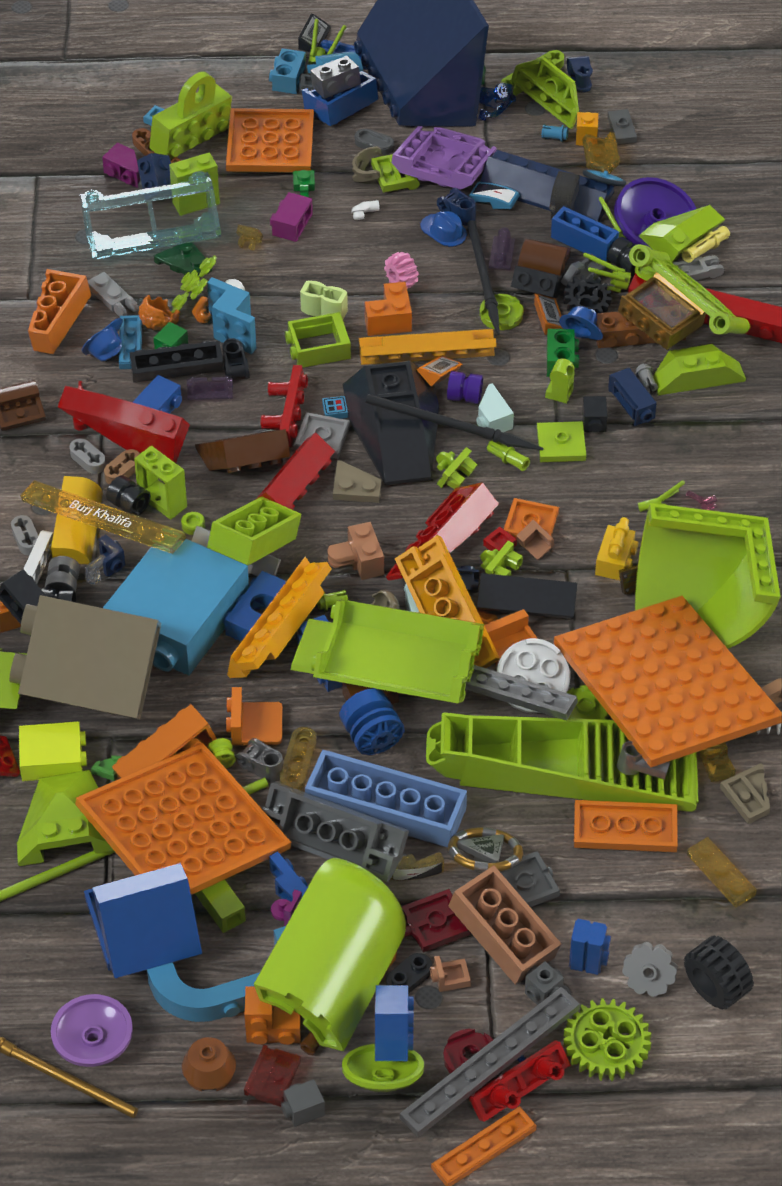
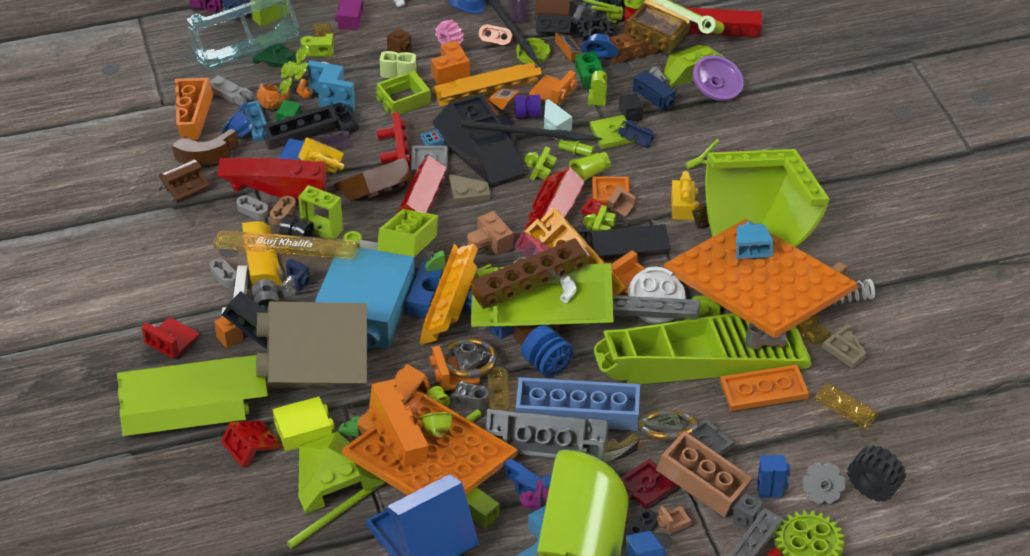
camera: 15 degrees left, 5 degrees down
(56, 373) = (205, 152): none -> reddish brown arch
(148, 782) = (396, 424): none -> orange wedge
(187, 404) = (319, 152): none -> yellow brick
(200, 791) = (437, 423): none -> lime piece
(238, 255) = (319, 45): none -> lime leg
(275, 577) = (436, 262): none -> bright green tile
(277, 709) = (469, 357): none -> flat silver piece
(337, 270) = (399, 41): none -> reddish brown brick
(376, 617) = (529, 273): none -> reddish brown brick
(400, 583) = (530, 245): none -> clear pink tile
(423, 646) = (569, 289): none -> white arm
(462, 281) = (496, 34): none -> plate
(507, 370) = (555, 89): none -> orange bracket
(513, 483) = (590, 165): none -> lime plant
(595, 457) = (643, 135): none -> dark blue hinge
(671, 631) = (753, 241): none -> dark azure torso
(723, 387) = (718, 78): none -> medium lavender dish

